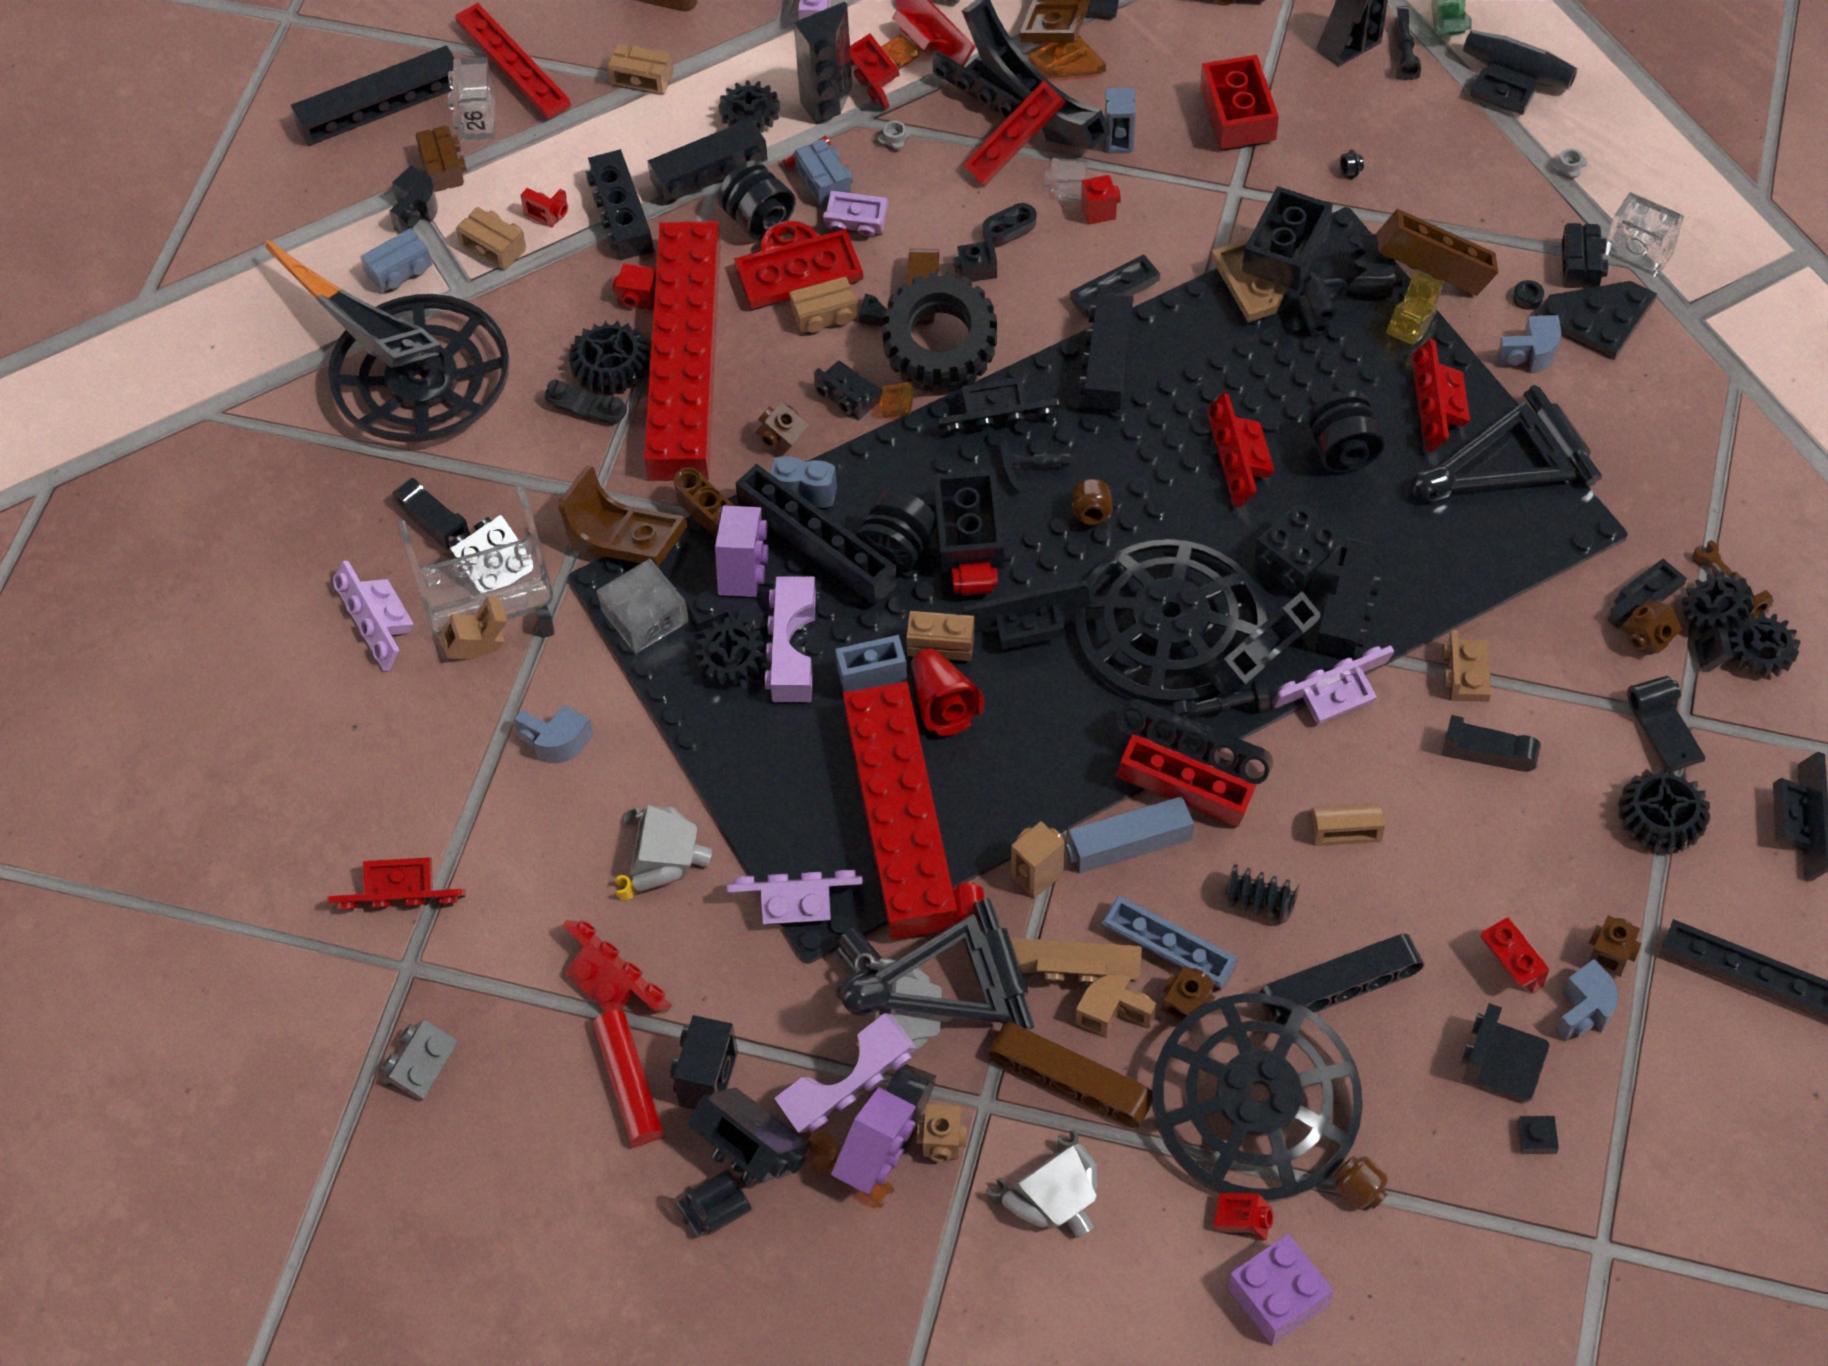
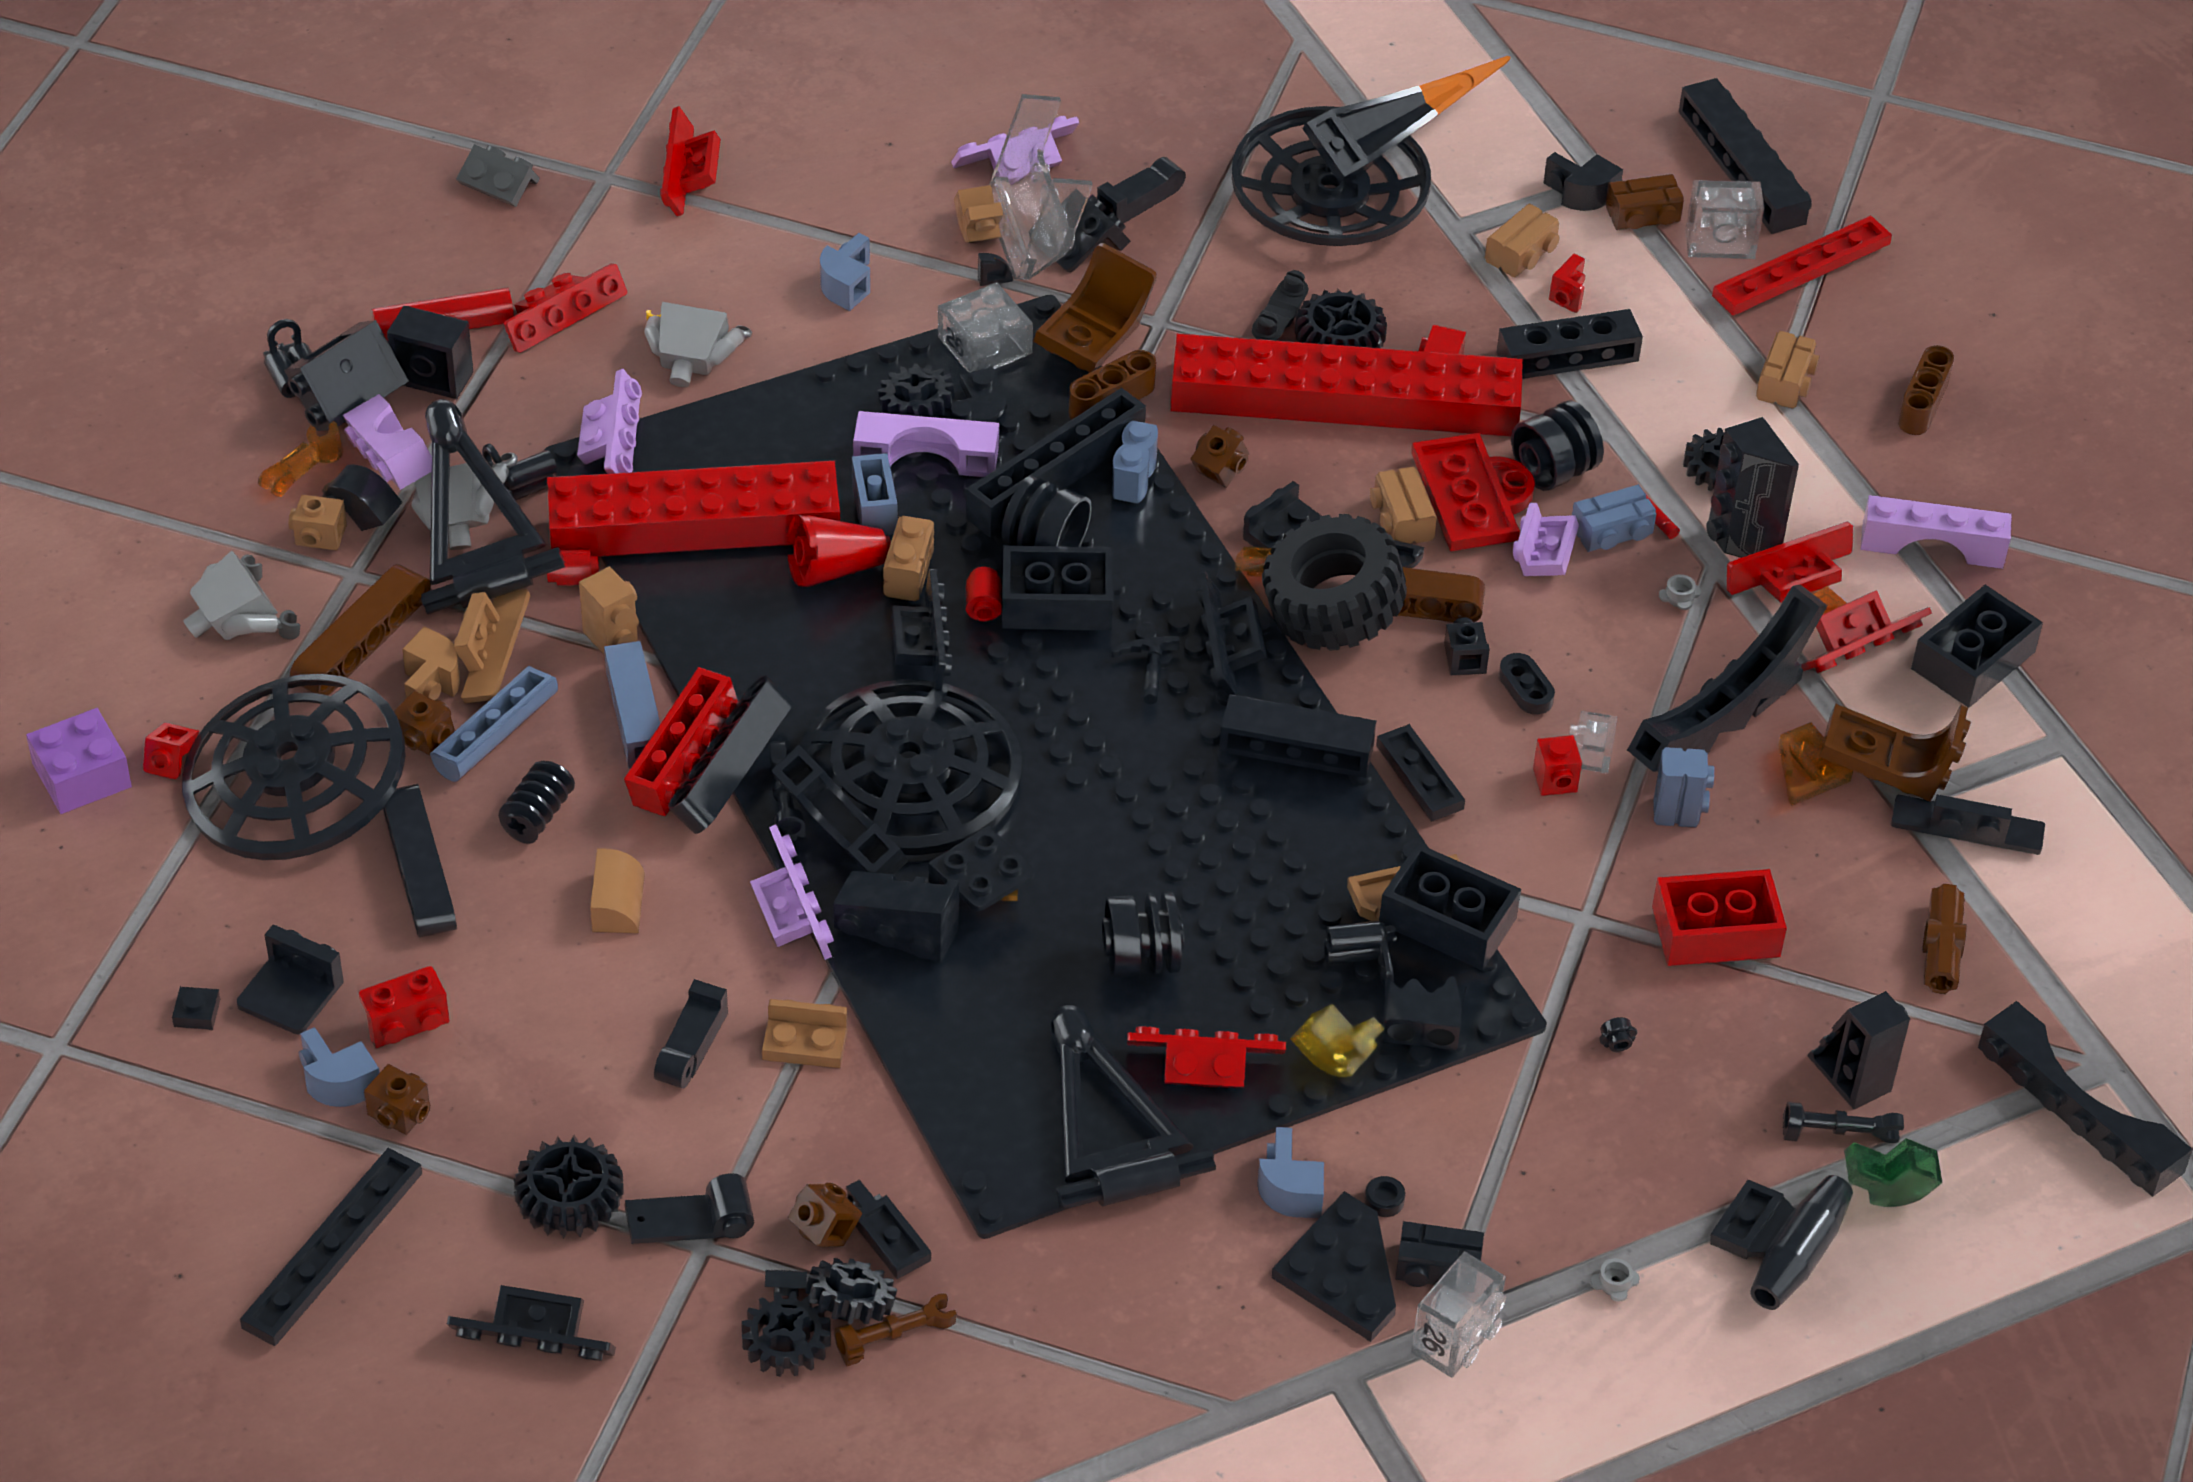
camera: 90 degrees right, 10 degrees down
(396, 260) = (1492, 167): sand blue brick -> none
(706, 160) = (1631, 416): black brick -> none
(741, 551) = (1031, 390): medium lavender brick -> none
(875, 1141) = (307, 452): medium lavender brick -> none
(1014, 133) = (1654, 678): red plate -> none
(1092, 502) = (1077, 703): reddish brown head -> none
(1240, 449) = (1143, 854): red bracket -> none
(1361, 1183) = (176, 841): reddish brown head -> none
(1437, 252) = (1423, 1064): reddish brown brick -> none

